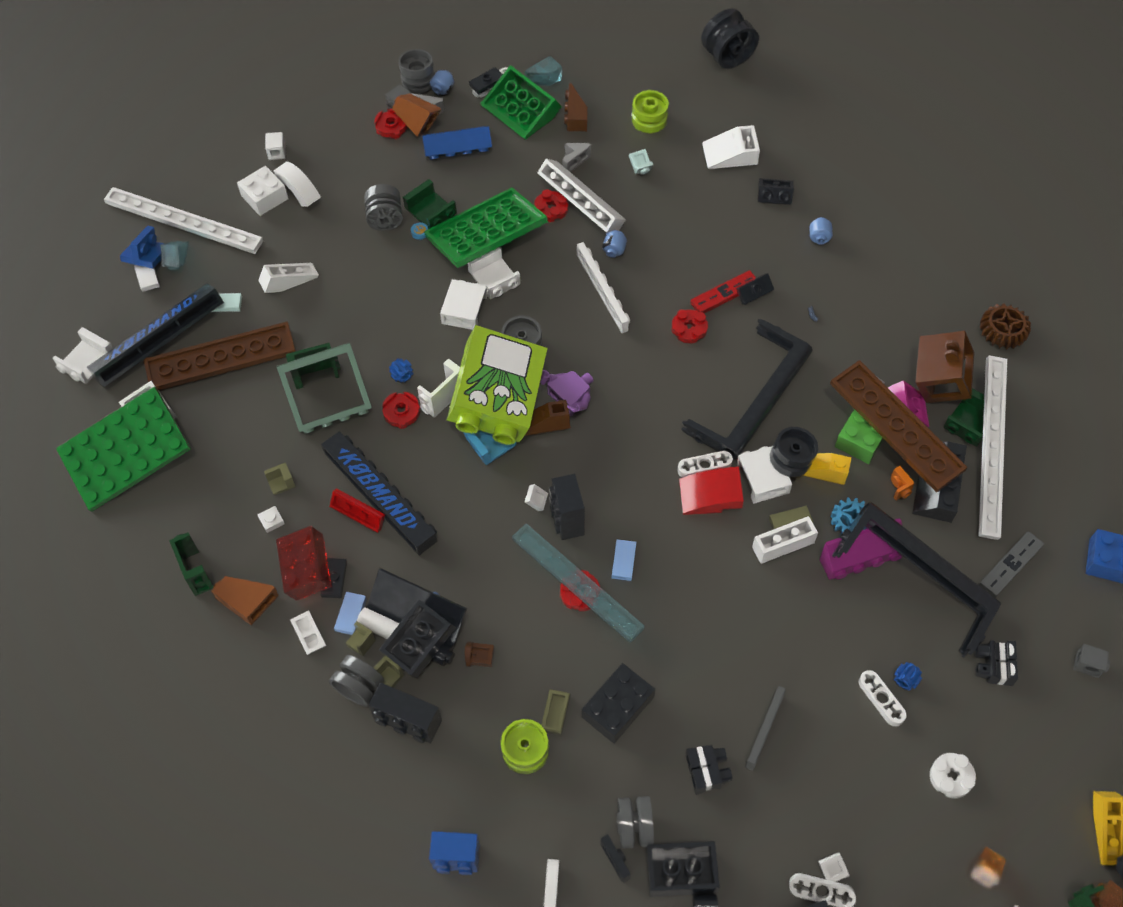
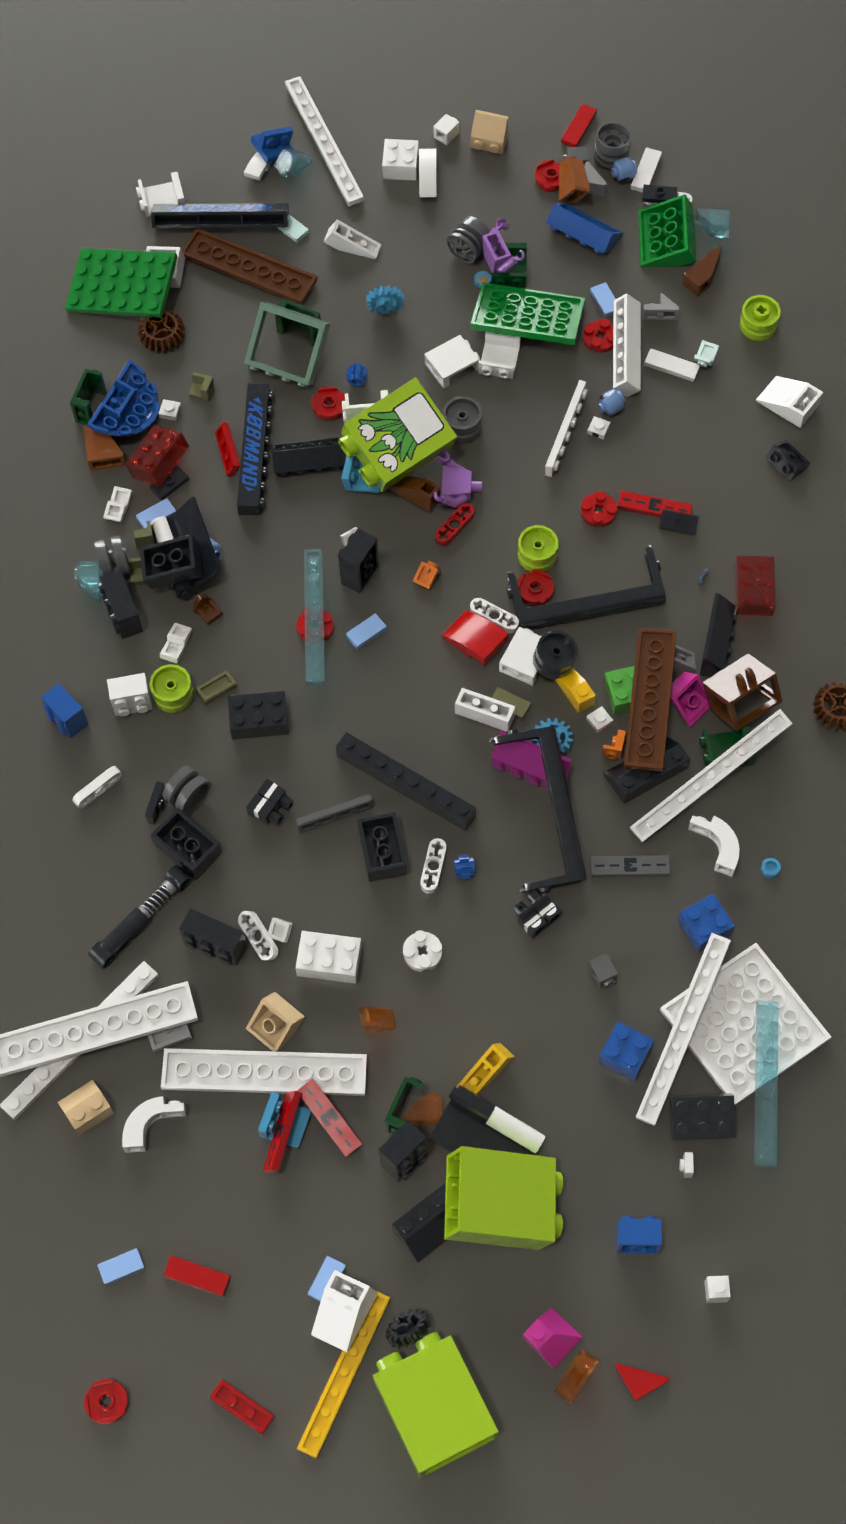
camera: 45 degrees right, 5 degrees up
(208, 466) = (163, 336): none -> reddish brown gear
(231, 543) = (128, 406): none -> blue brick
(313, 123) = (489, 132): none -> tan slope
(350, 716) = (88, 577): none -> clear light blue slope
(365, 297) = (385, 300): none -> dark azure gear
(373, 77) = (578, 125): none -> red tile
(418, 198) = (496, 251): none -> medium lavender torso
(429, 461) = (307, 455): none -> black slope
(461, 81) = (646, 169): none -> white tile
(482, 705) = (176, 643): none -> white slope
(497, 784) = (129, 694): none -> white brick
(526, 179) = (603, 299): none -> light blue tile
(598, 428) = (453, 532): none -> red beam
(622, 476) = (426, 574): none -> orange bracket
(623, 269) = (598, 427): none -> white plate
(624, 188) = (672, 365): none -> white tile
(684, 387) = (537, 548): none -> lime wheel
(716, 410) = (533, 578): none -> red plate
(789, 650) = (406, 781): none -> black brick
(821, 231) = (782, 518): medium blue head -> none
(834, 719) = (382, 846): none -> black brick
(857, 290) = (754, 585): none -> clear red brick
(865, 475) = (599, 719): none -> white plate
(877, 347) = (718, 636): none -> black slope
(896, 852) = (328, 957): none -> white brick
(1056, 486) = (723, 837): none -> white arch
(1097, 478) = (770, 868): none -> dark azure tile

